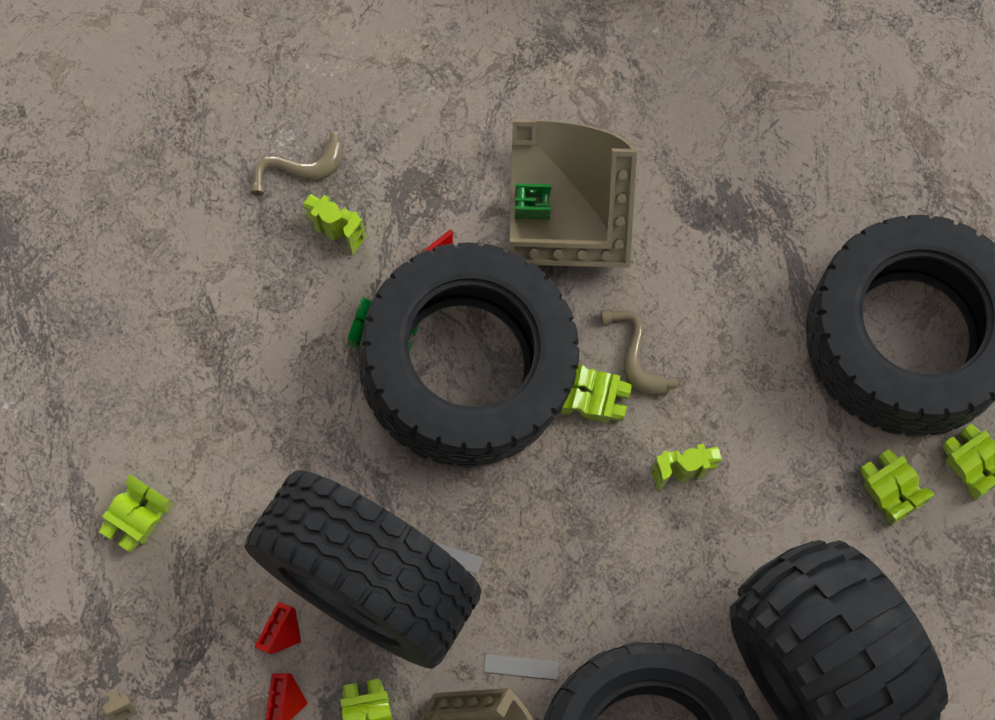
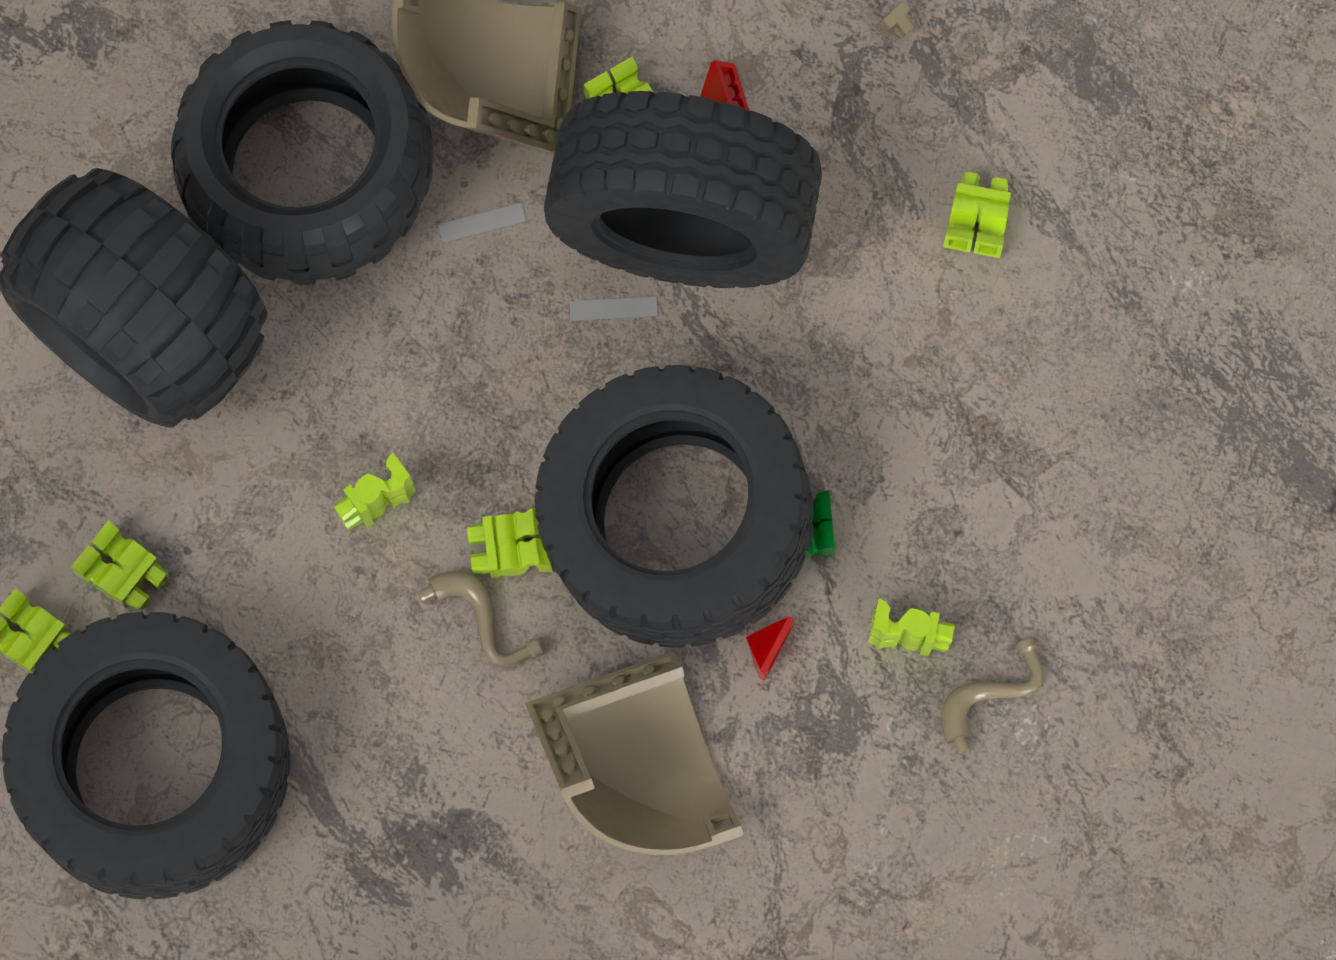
camera: 160 degrees right, 0 degrees up
(526, 207) = (684, 739): green piece -> none

